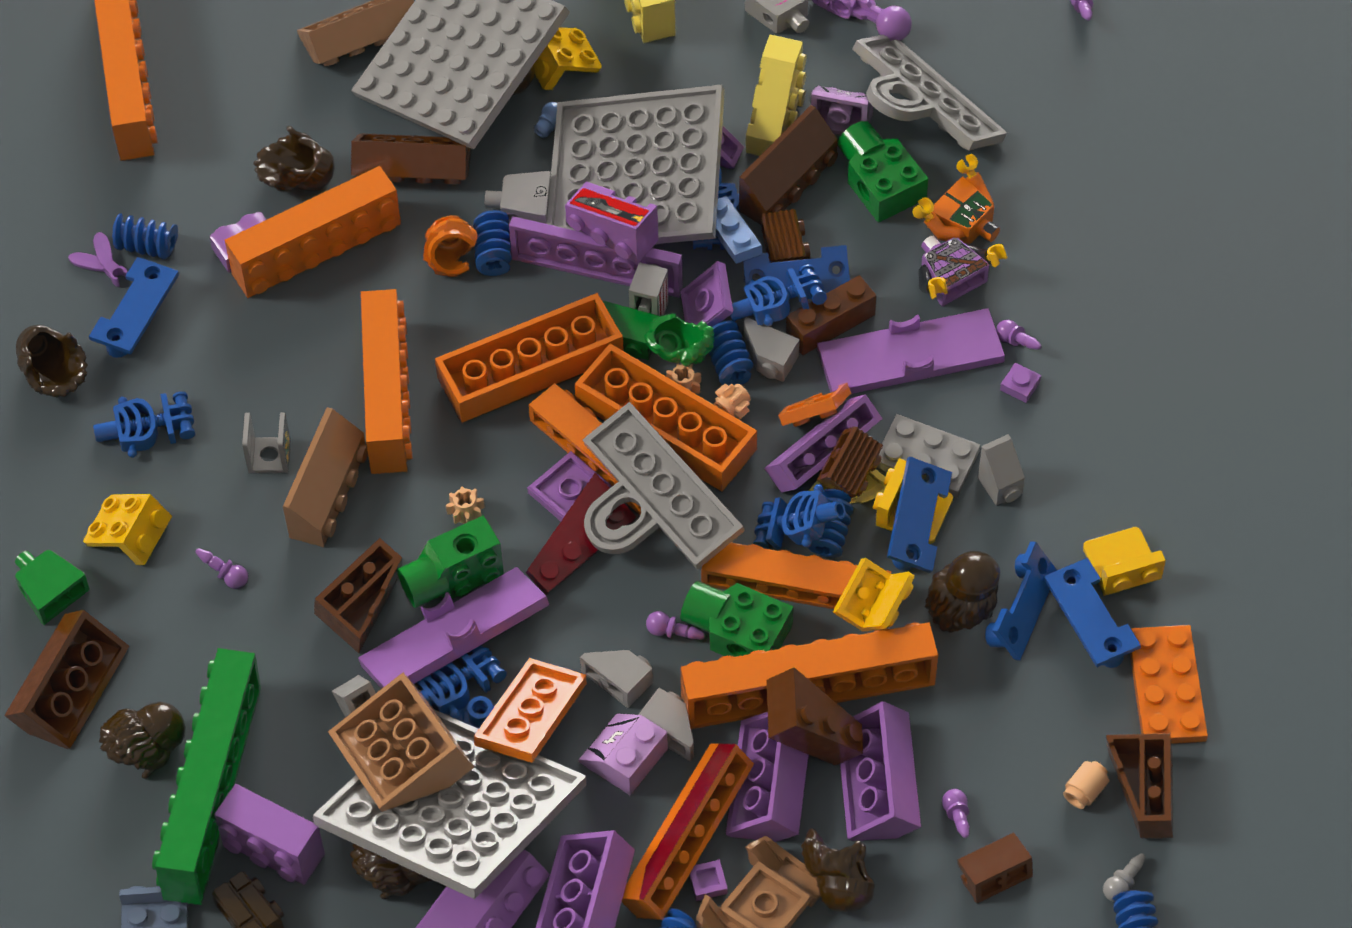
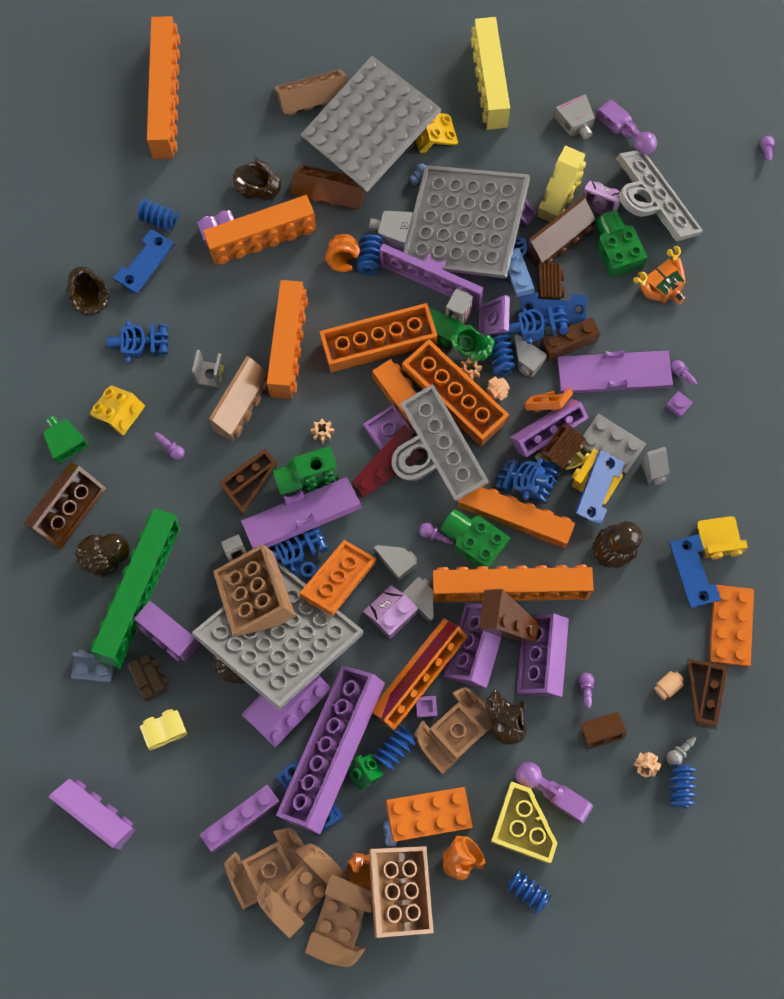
camera: 10 degrees right, 15 degrees up
(102, 262) = (130, 226): medium lavender piece -> none
(614, 221) = (443, 259): medium lavender wedge -> none
(873, 596) = (561, 542): yellow bracket -> none
(955, 267) = (652, 319): torso -> none
(1016, 626) = (644, 572): blue brick -> none
(1076, 912) = (647, 764): none -> light nougat gear

